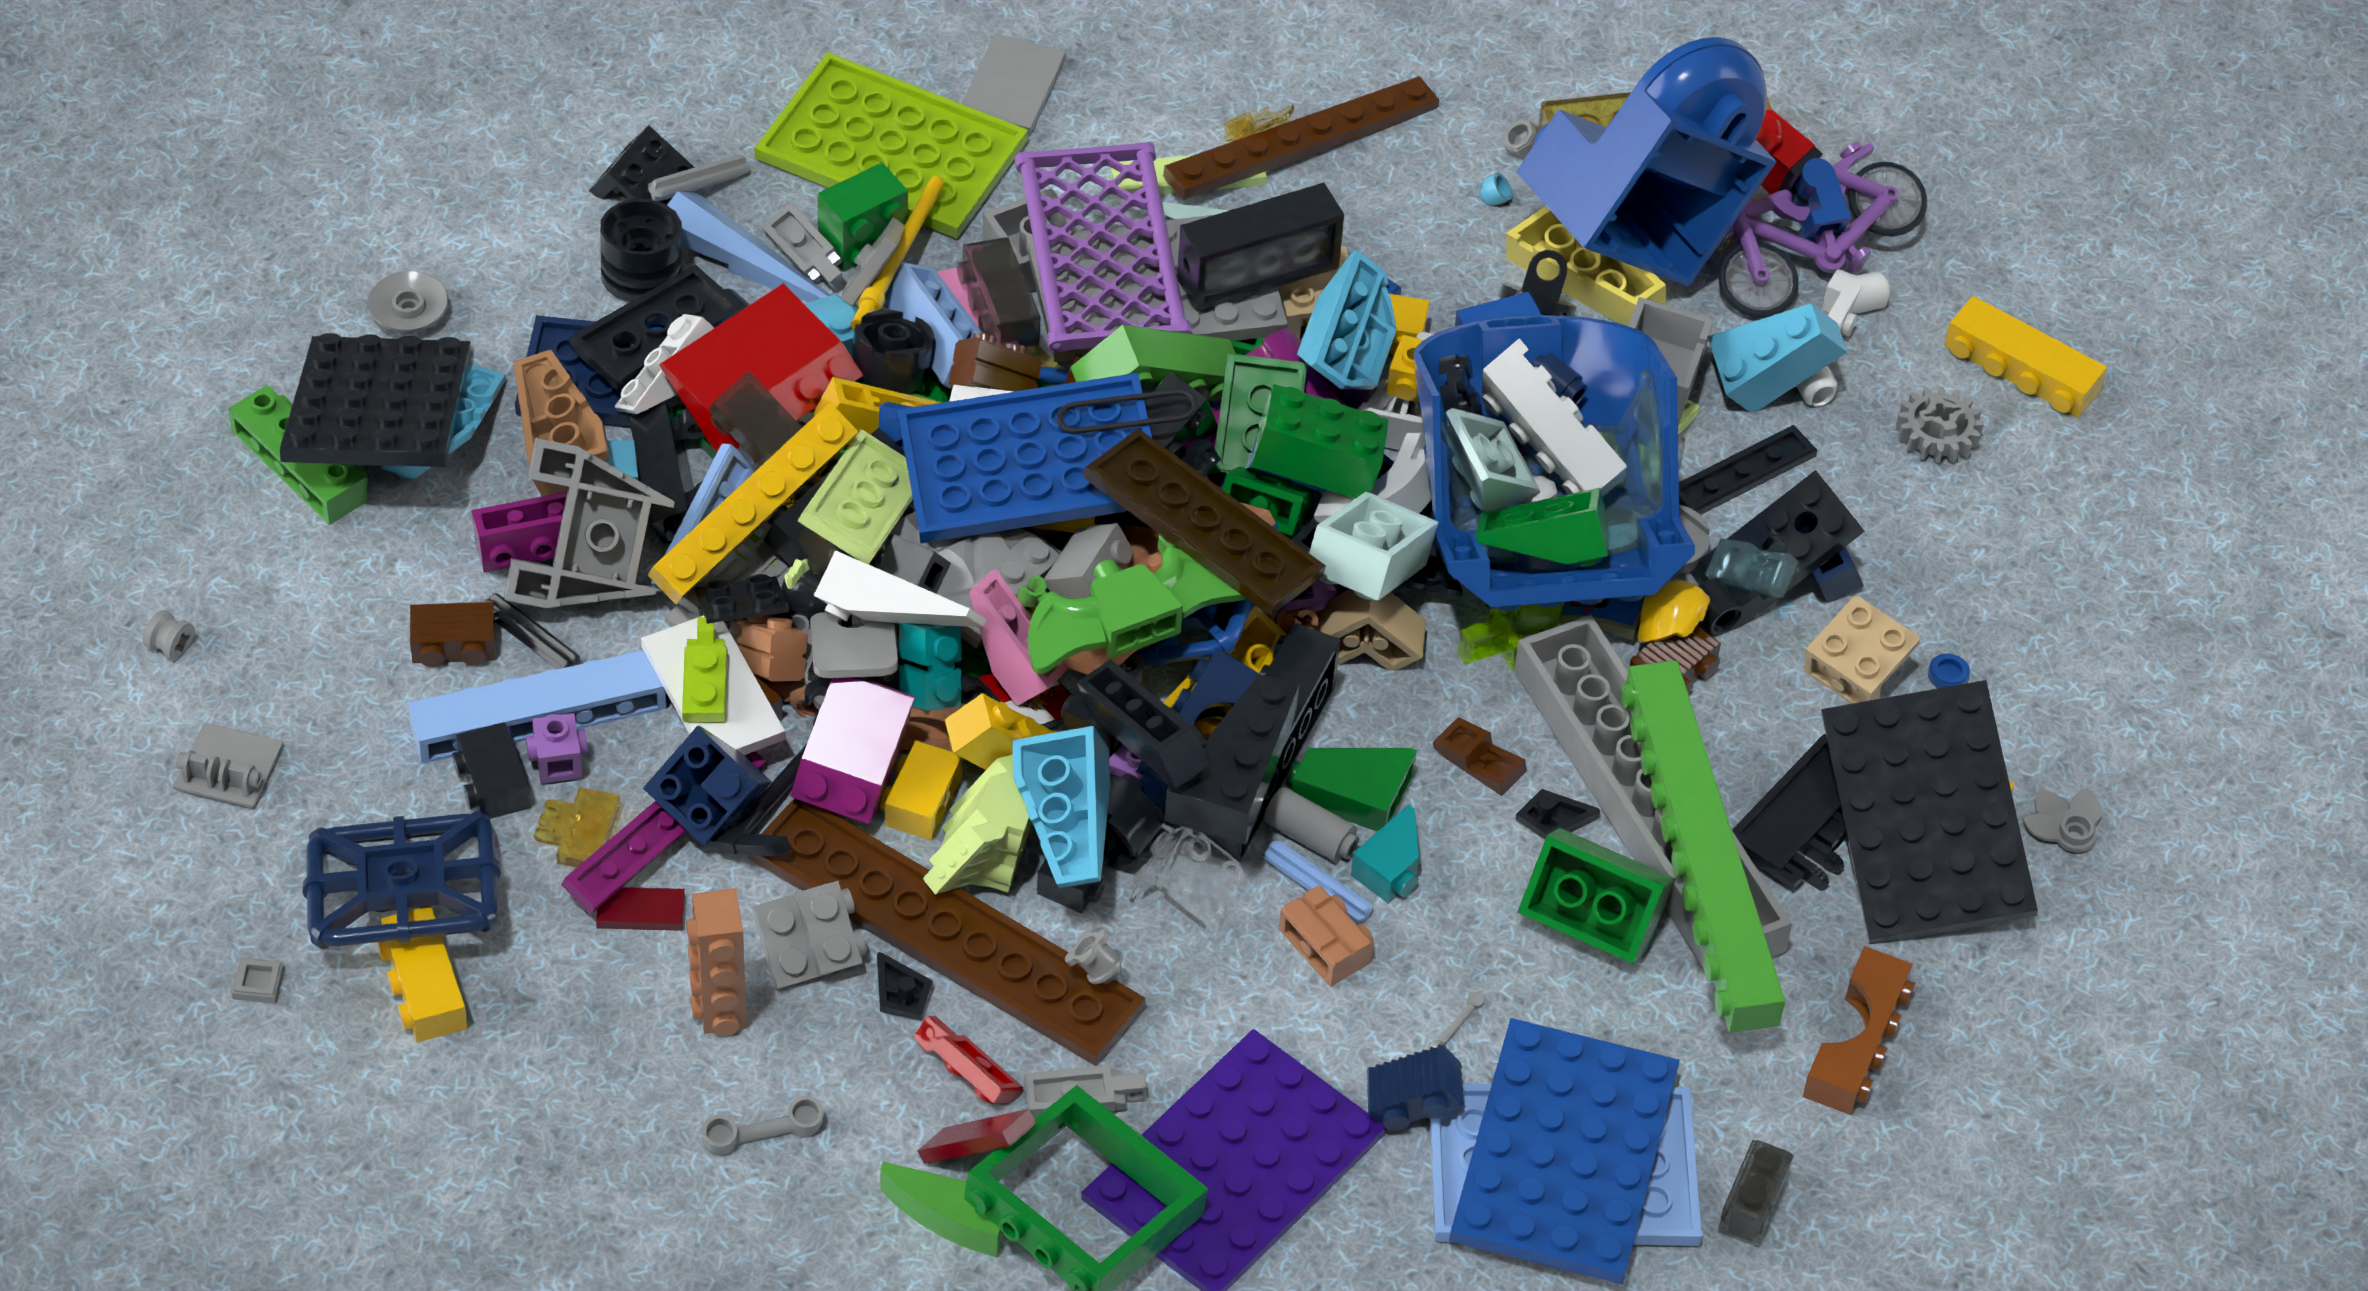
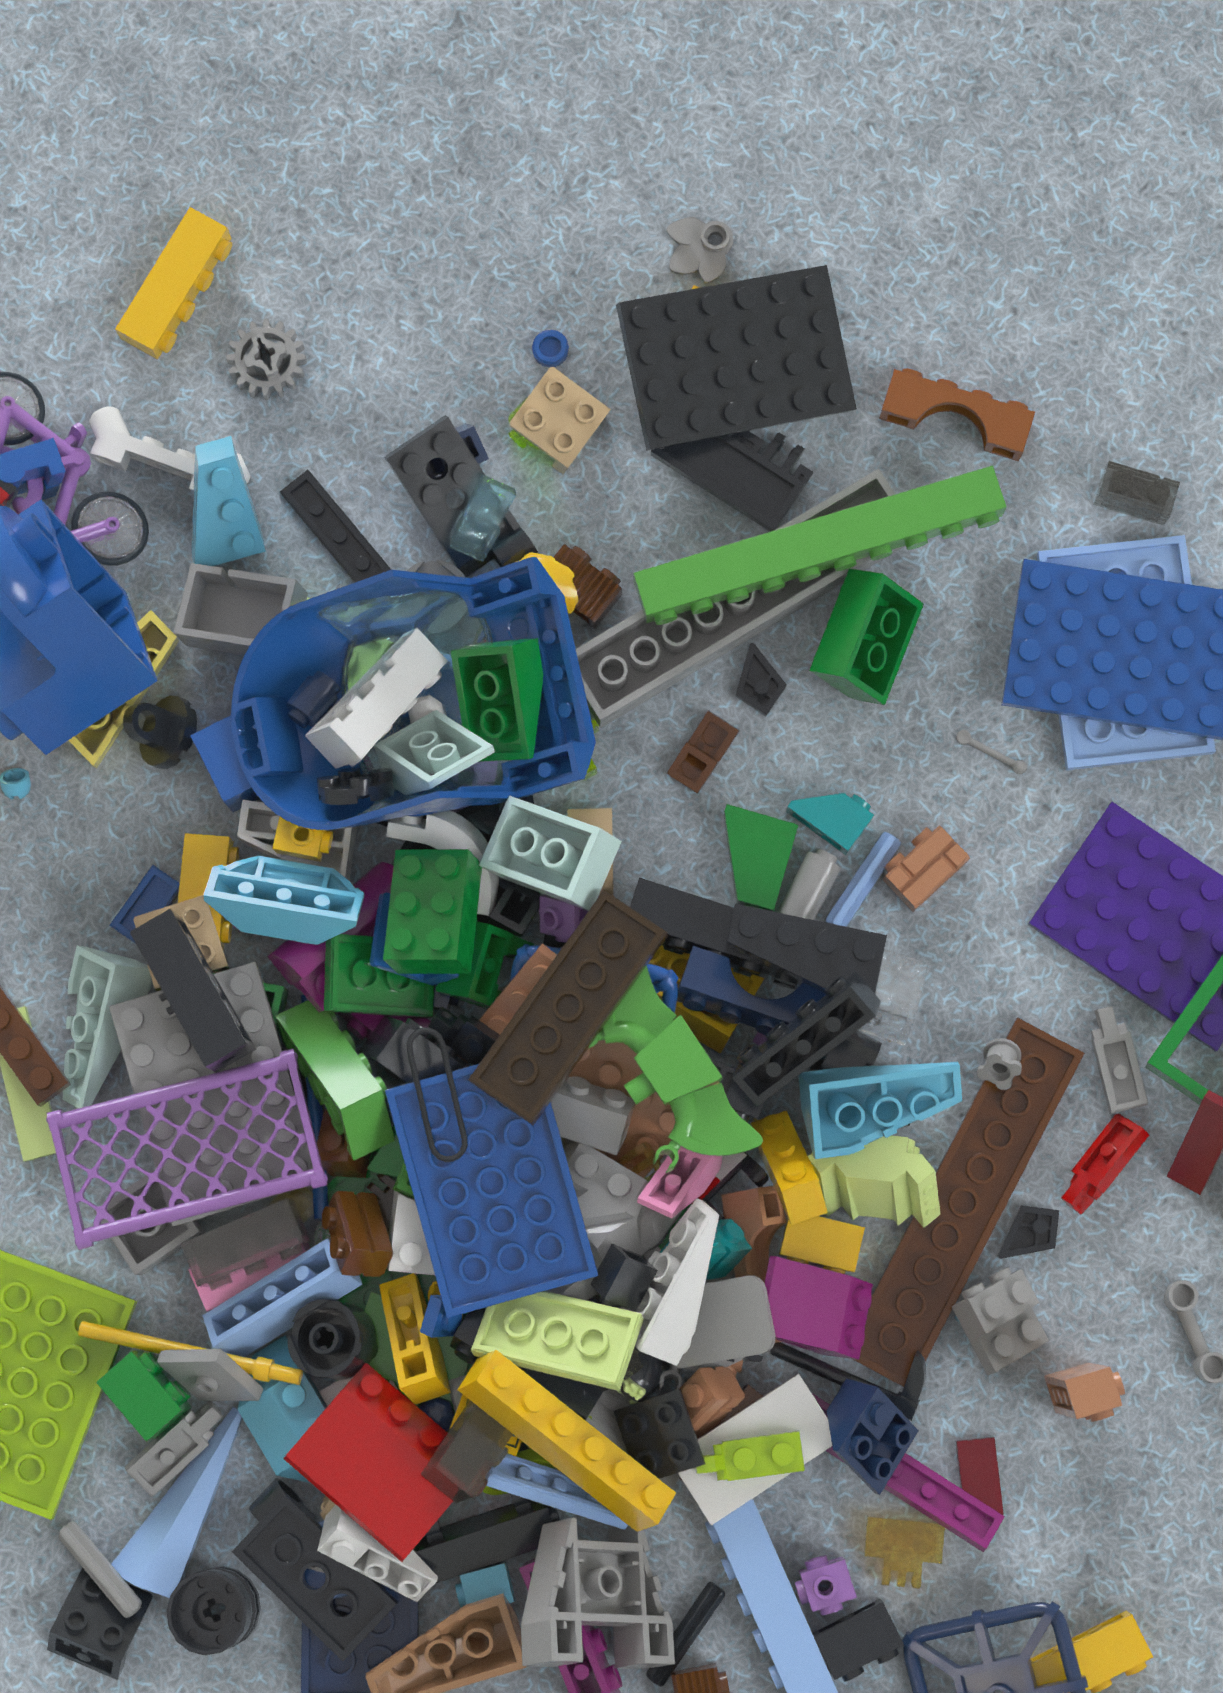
camera: 90 degrees left, 30 degrees up
(1414, 1088) = (1087, 777): dark blue brick -> none

